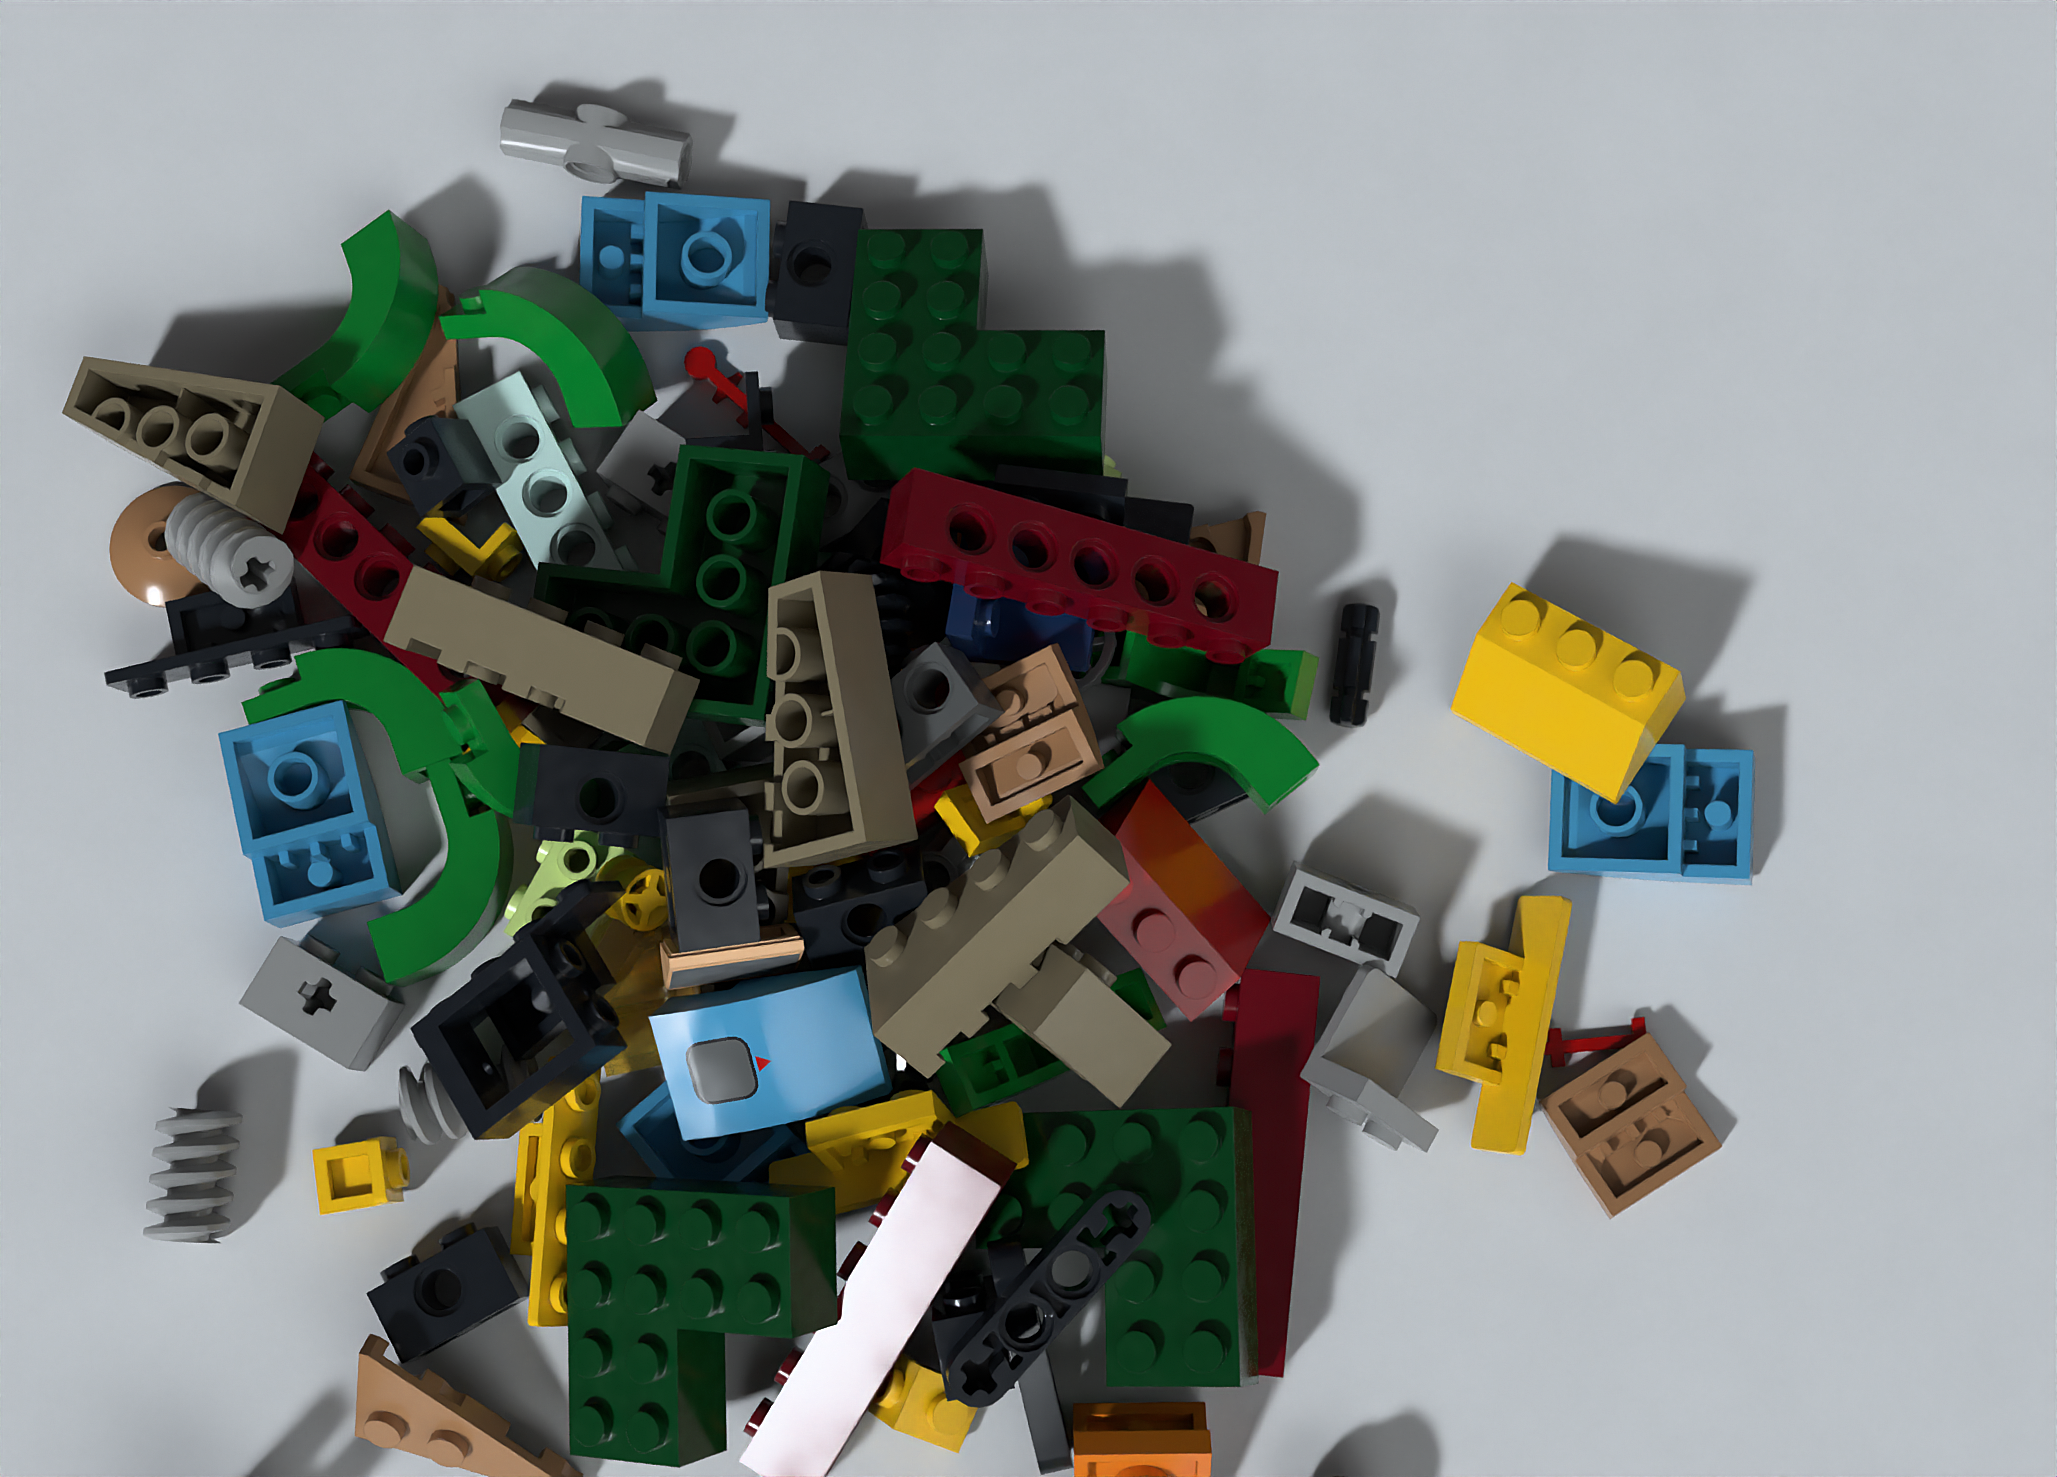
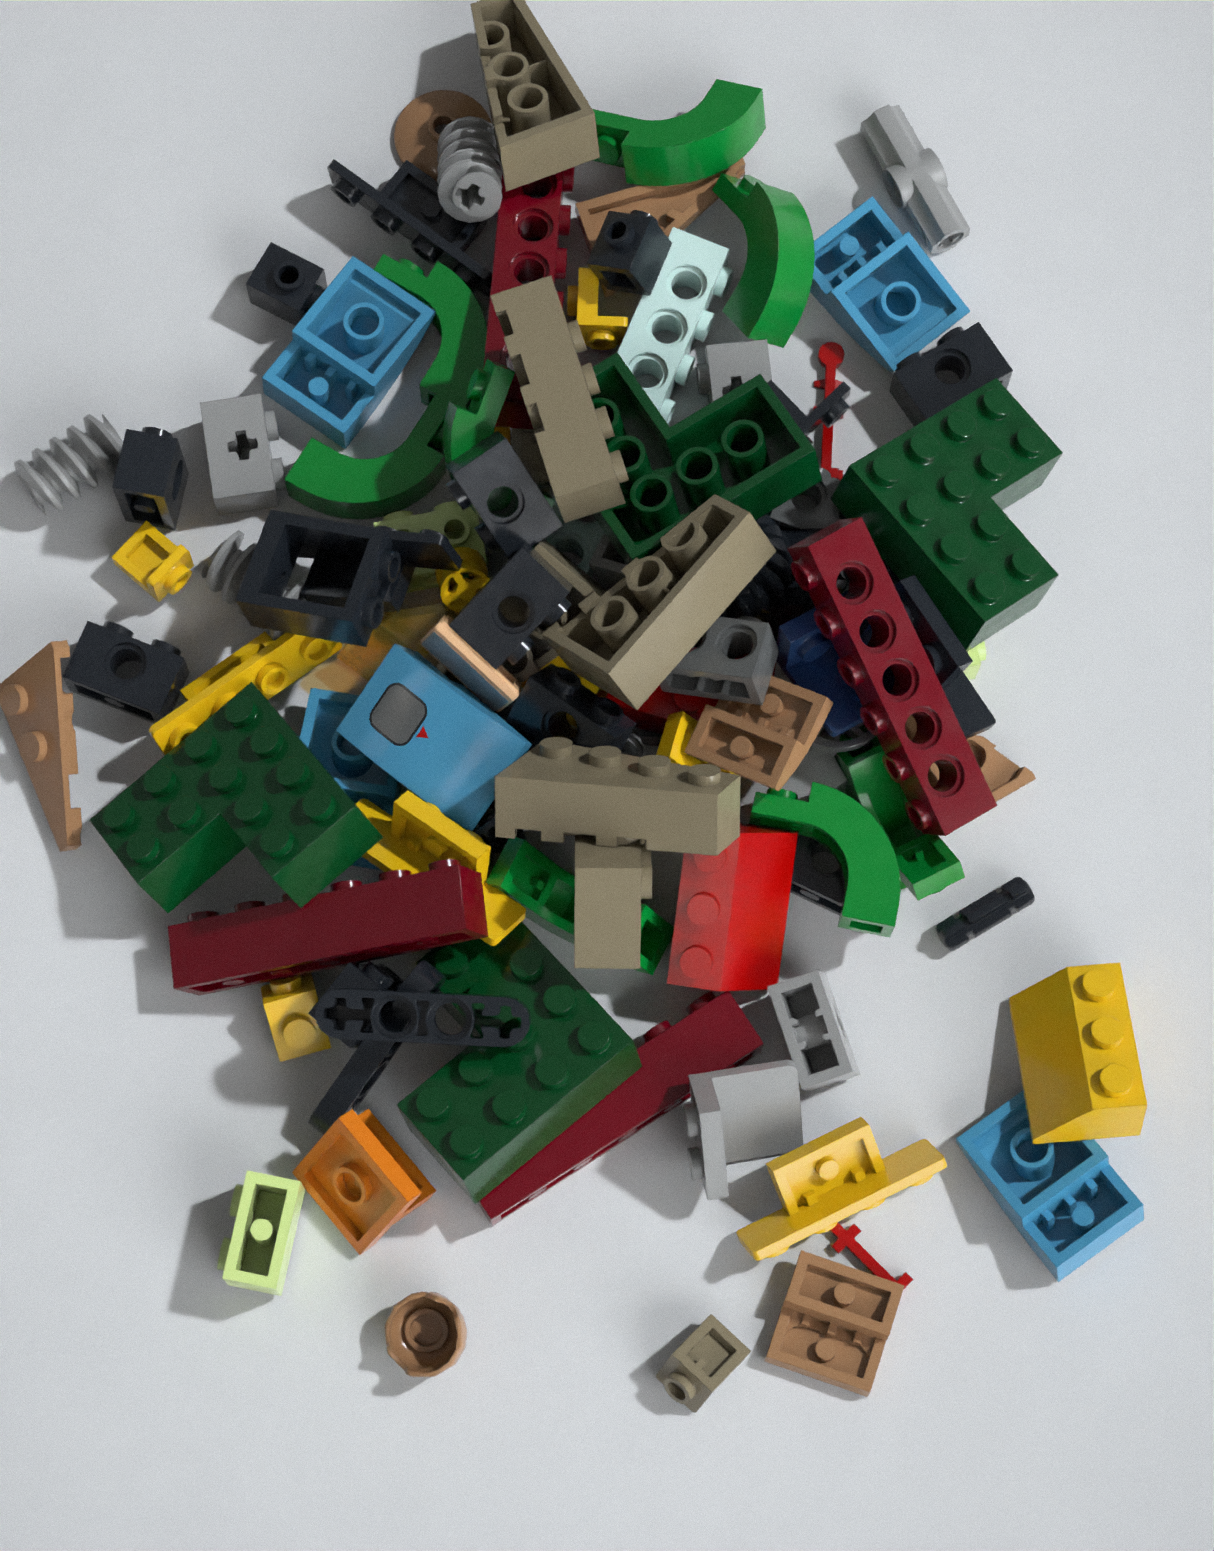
camera: 40 degrees right, 5 degrees down
(189, 820) = (285, 284): none -> black brick
(273, 1113) = (150, 477): none -> black brick
(1573, 1282) = (702, 1363): none -> dark tan bracket

